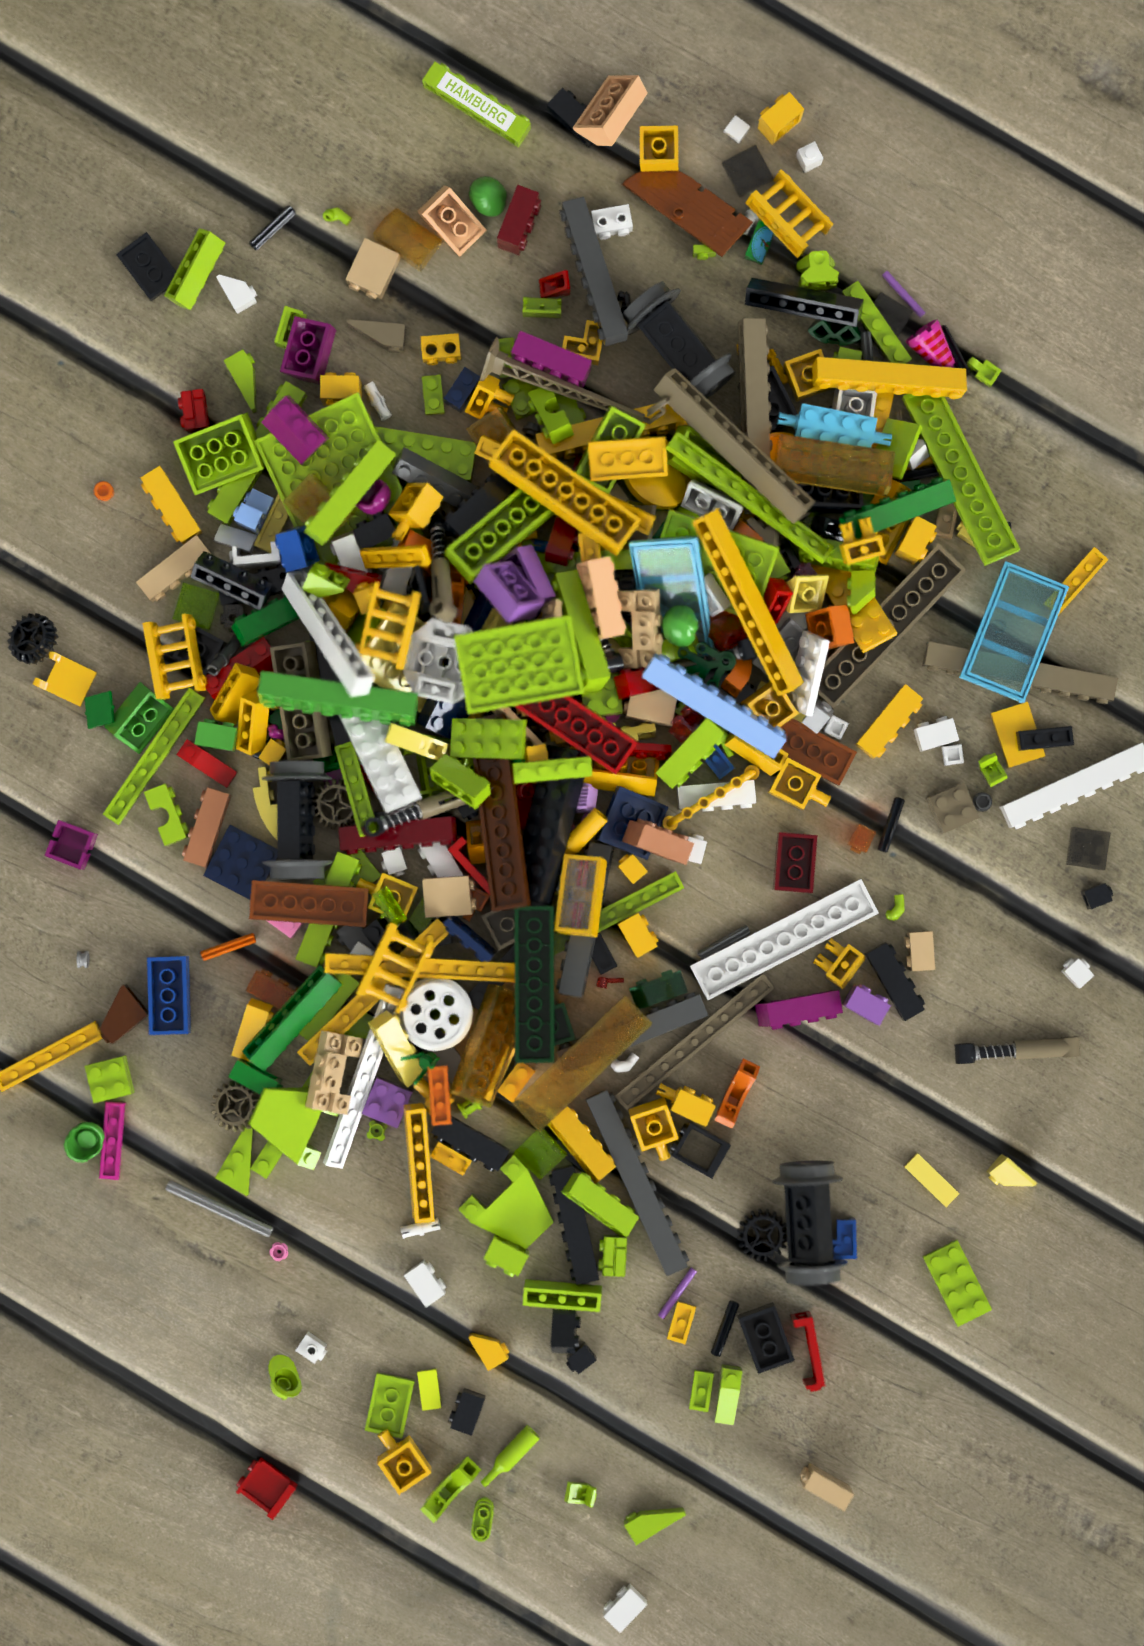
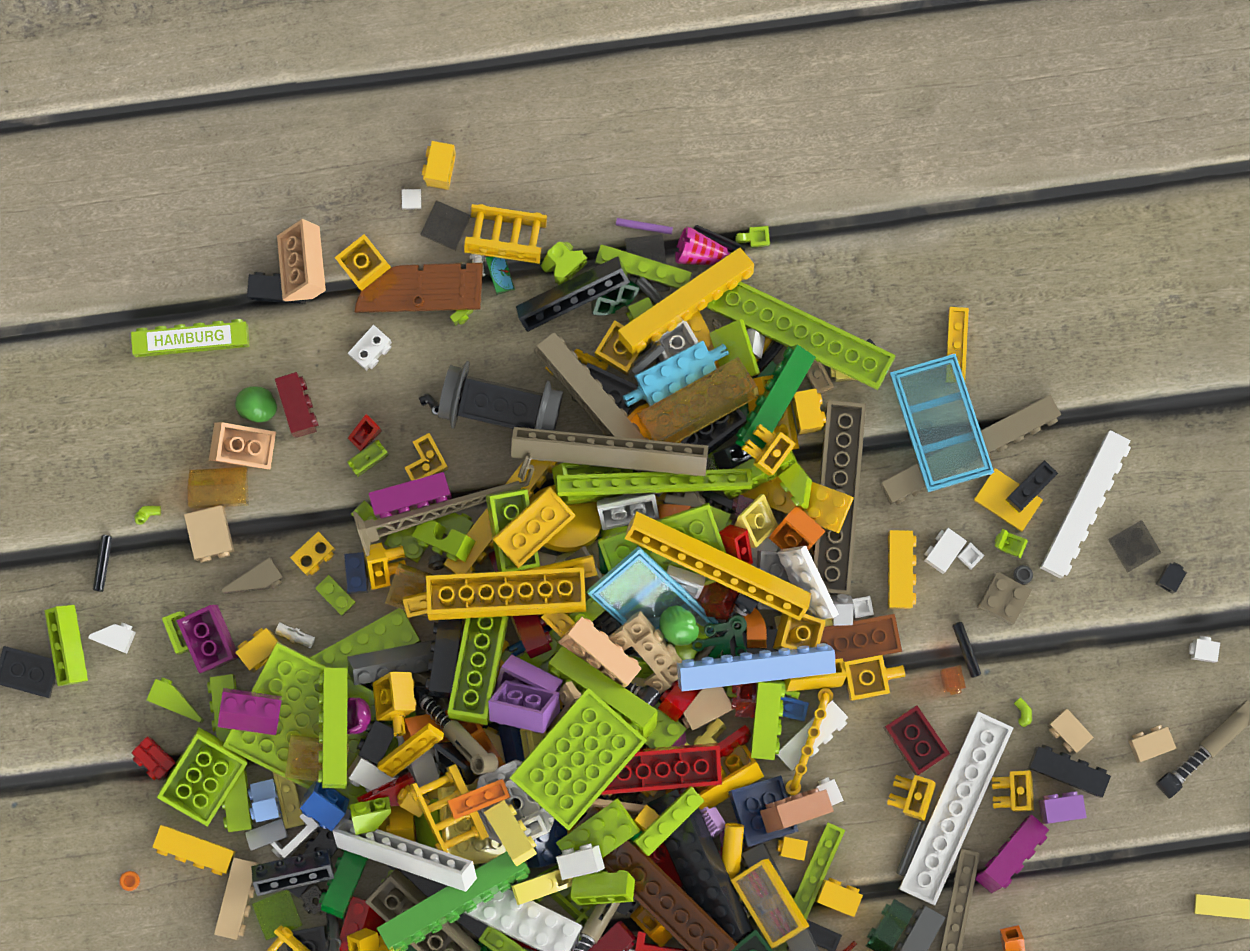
camera: 40 degrees left, 5 degrees down
(417, 633) = (478, 799): none -> orange plate
(422, 679) = (511, 832): none -> light yellow brick
(458, 747) = (580, 862): none -> white brick
(594, 271) = (388, 398): dark grey brick -> none
(760, 908) = (919, 796): none -> yellow brick
(809, 157) = (486, 177): white brick -> none
(822, 397) = (647, 357): none -> dark grey tile
(976, 1011) = (1152, 744): none -> tan brick

